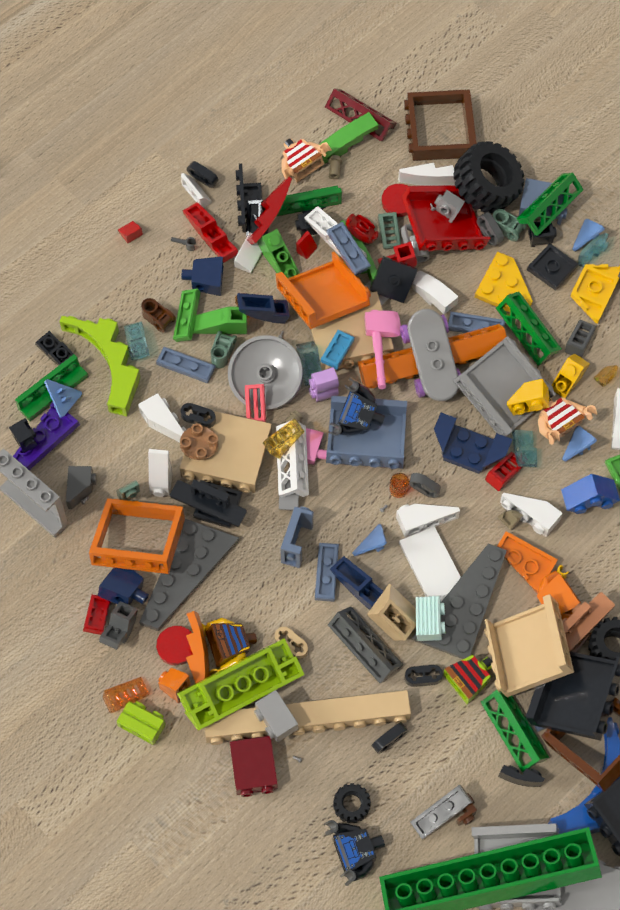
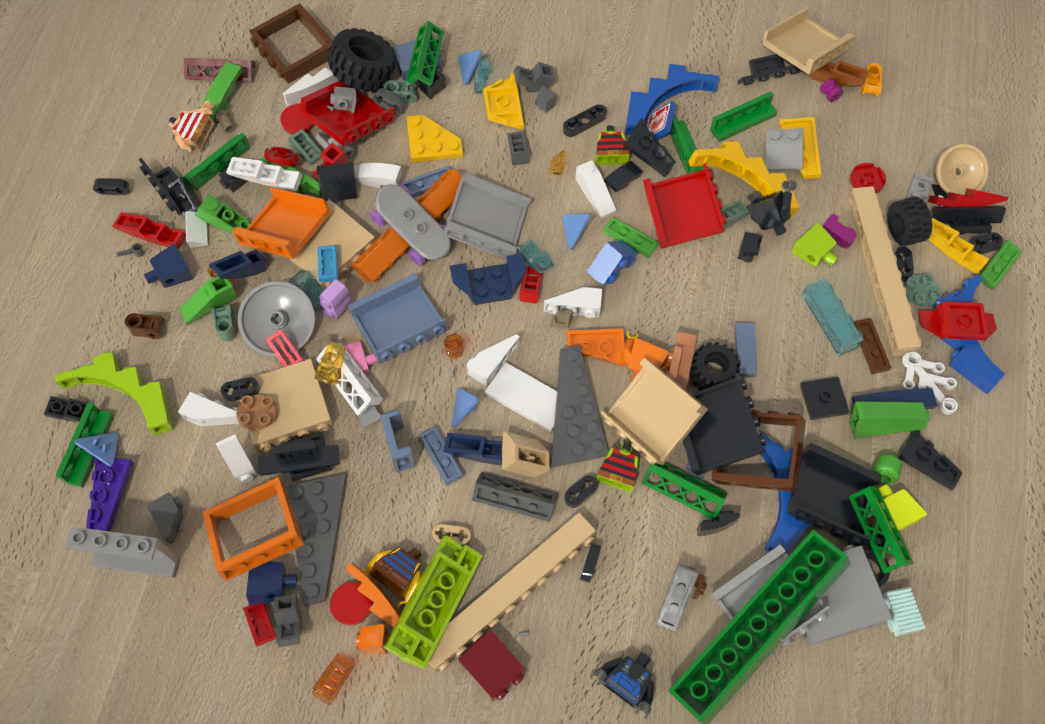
camera: 35 degrees left, 0 degrees up
(24, 435) = (84, 503): black brick -> none
(128, 491) = (218, 493): sand green slope -> none
(130, 231) = (75, 269): red slope -> none
(136, 340) = (141, 358): clear light blue slope -> none
(141, 722) = (365, 695): lime brick -> none
(185, 365) = (199, 354): sand blue tile -> none
(186, 315) = (173, 311): bright green tile -> none
(195, 190) = (112, 203): white slope -> none
(272, 205) = (192, 176): red slope -> none
(276, 716) = (485, 609): light grey brick -> none
(306, 245) = (242, 196): red slope -> none
(348, 248) = (282, 175): sand blue tile -> none
(357, 411) = (379, 304): torso -> none
(357, 791) = (587, 650): black tyre -> none
(379, 325) = (351, 224): bright pink piece -> none
(424, 485) = (475, 333): dark grey beam -> none
(429, 618) = (556, 440): light aqua brick -> none
(529, 324) = (473, 155): green fence -> none
(529, 398) = (513, 213): yellow slope -> none
(552, 266) = (458, 104): black plate -> none
(562, 418) = (547, 215): torso -> none
(570, 375) = (530, 179): yellow slope -> none

